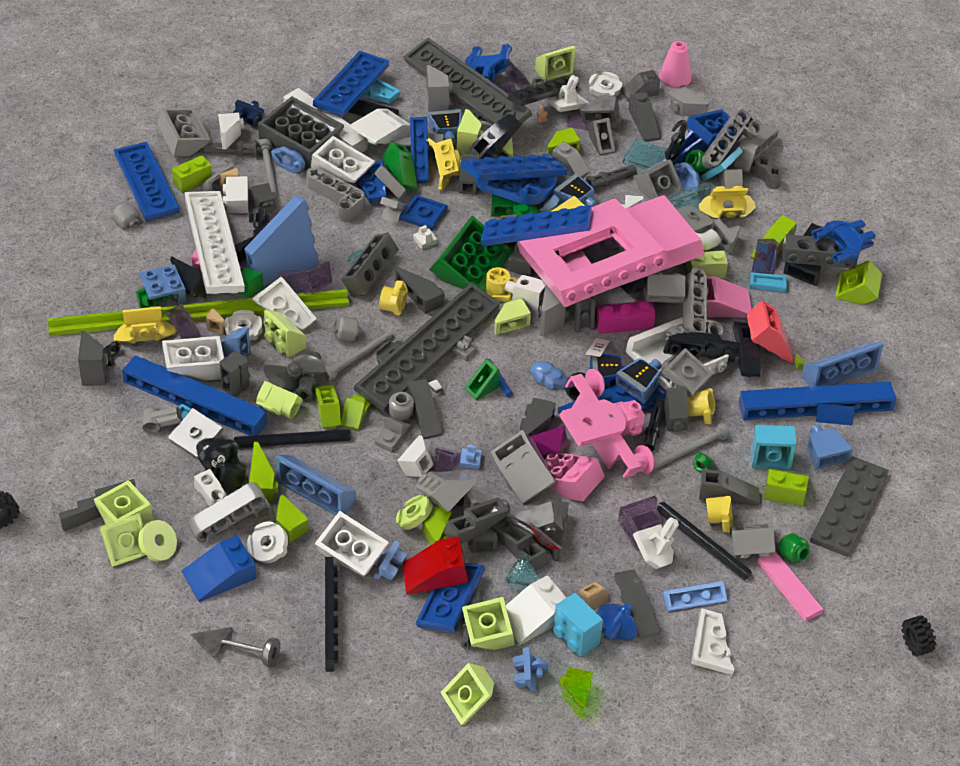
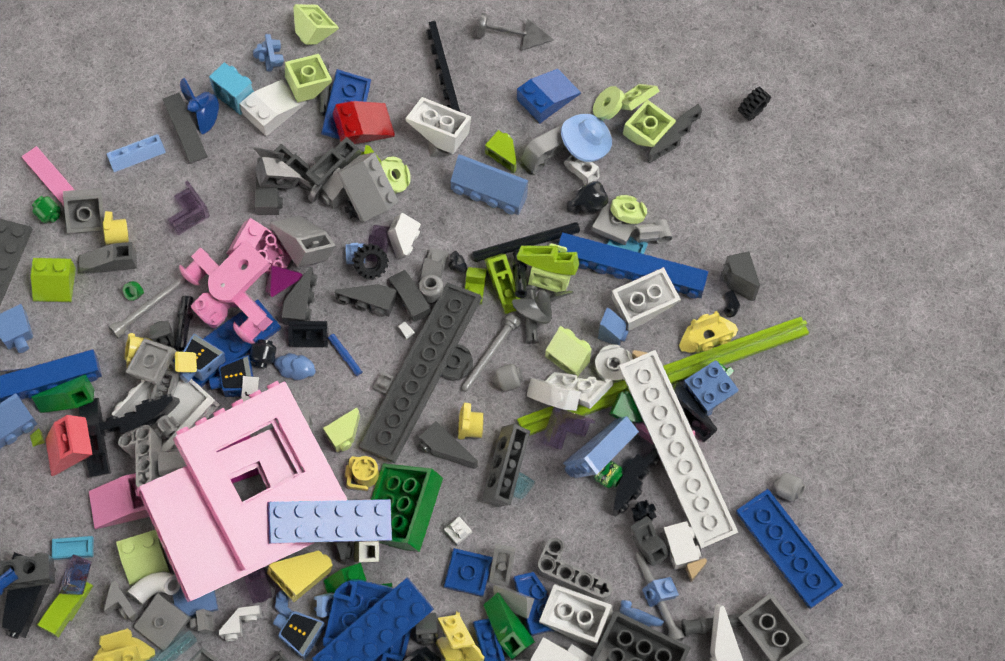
camera: 170 degrees right, 20 degrees up
(182, 322) = (673, 344): clear purple slope -> none
(187, 444) = (621, 206): none -> yellowish green tile
(191, 174) = (740, 564): lime brick -> none
(196, 507) = (586, 137): none -> light blue hat
(214, 182) = (711, 570): light grey slope -> none
(230, 475) = (570, 185): black panel -> none
(234, 373) = (599, 287): dark grey brick -> none
(263, 473) = (541, 191): lime slope -> none
(265, 171) = (659, 591): none -> medium blue bracket
(275, 550) = (514, 120): white plate -> none
(278, 399) = (549, 259): none -> lime slope
(304, 423) = (520, 288): none -> black pin
(310, 294) = (553, 394): none -> white slope
(368, 429) = (457, 262): none -> black plant
(385, 568) = (406, 133): light blue hips -> none
(457, 436) = (370, 250): none -> black tyre
(464, 413) = (370, 297): none -> dark grey slope
(484, 380) = (358, 340): green slope -> none
(522, 572) = (290, 136): clear light blue hat -> none
(524, 397) = (308, 333): none -> black hinge
(531, 292) = (335, 454): white torso -> none
(576, 689) = (227, 43): clear neon green slope -> none
(594, 595) = (224, 136): tan slope -> none
(654, 360) = (185, 362): none -> light yellow slope
(656, 543) = (171, 180): white piece -> none
(705, 541) = (131, 207): black axle -> none
(710, 643) = (119, 106): white wing -> none
(768, 374) = (65, 396): none -> green slope
(773, 447) = (65, 306): medium azure brick -> none

